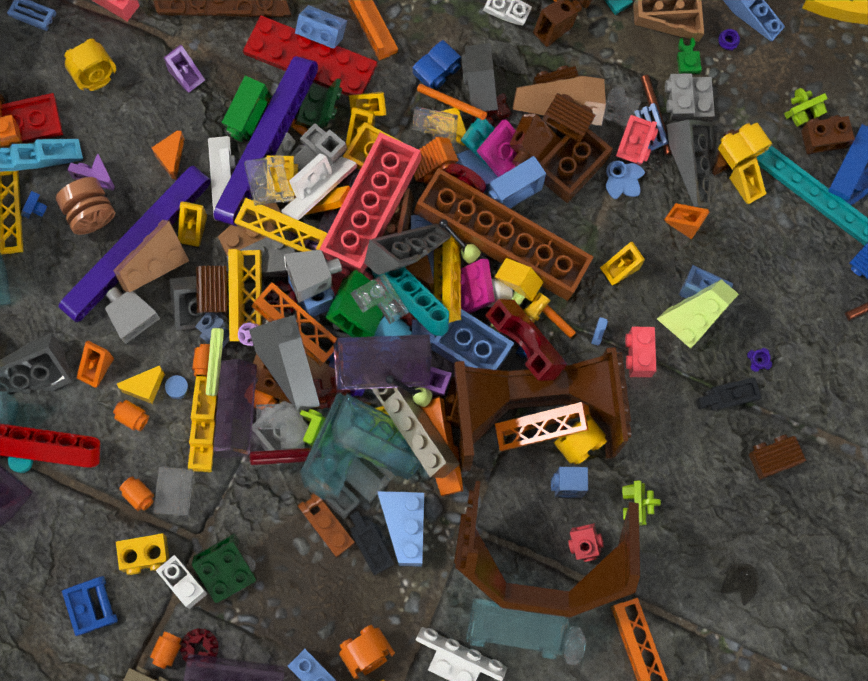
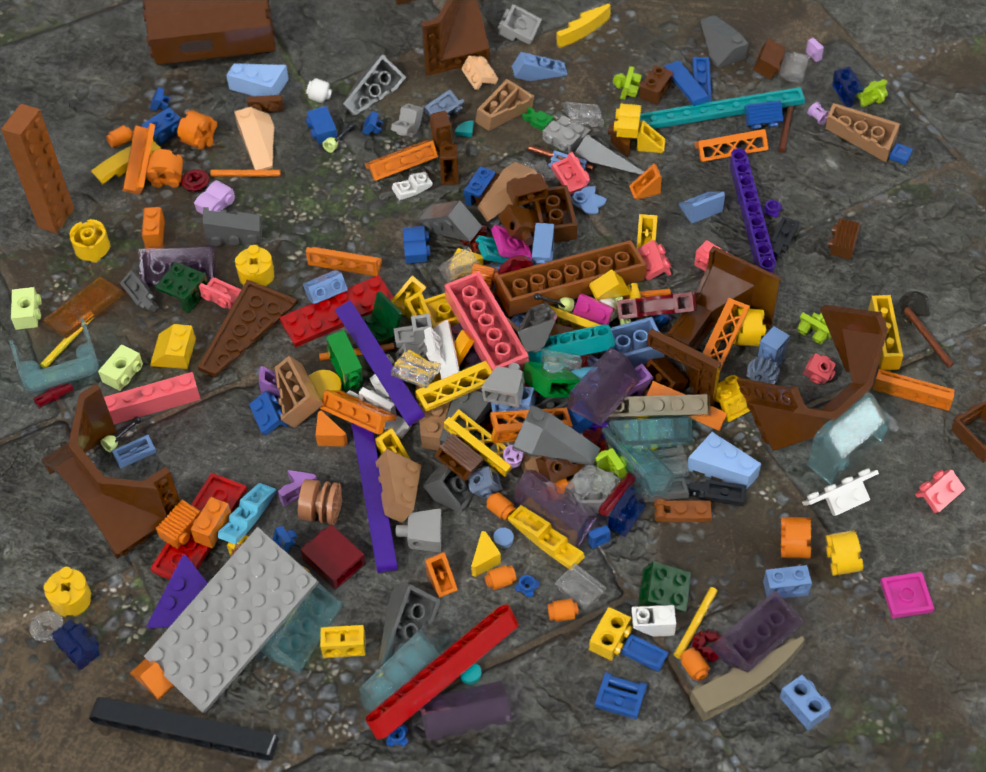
camera: 45 degrees left, 20 degrees down
(46, 259) = (333, 556): none -> dark red brick
(89, 65) = (216, 434): yellow brick -> none
(137, 439) = (527, 580): none -> blue plate
(150, 596) = (644, 652): none -> blue tile
(153, 89) = (267, 412): none -> blue bracket
(186, 94) = (297, 392): none -> medium nougat wedge
(197, 160) = (356, 410): none -> orange fence
(212, 109) = (325, 380): none -> yellow tile
(214, 363) = (512, 492): yellowish green axle -> none
(214, 619) = (695, 622): none -> yellow bar
(237, 469) = (598, 536): none -> blue plate
(279, 476) = (625, 513): none -> clear blue bracket
(420, 395) = (641, 389): hinge -> none
(452, 101) = (451, 248): orange bar -> none
(496, 479) = (731, 398): none -> yellow bracket
(538, 491) = (763, 370): none -> sand blue gear
(551, 66) = (478, 185): none -> blue bracket
(597, 293) = (655, 259): none -> coral bracket
(599, 330) = (679, 276): medium blue tile -> none
(683, 576) = (892, 351): none -> yellow brick
(697, 313) = (718, 210): yellowish green wedge -> none
(716, 621) = (928, 337): none -> copper bar
(729, 34) = (546, 91): dark purple plate -> none
(730, 91) = (584, 114): none -> clear plate
(740, 335) = (751, 211): none -> dark purple beam
(815, 256) = (731, 138): none -> orange fence

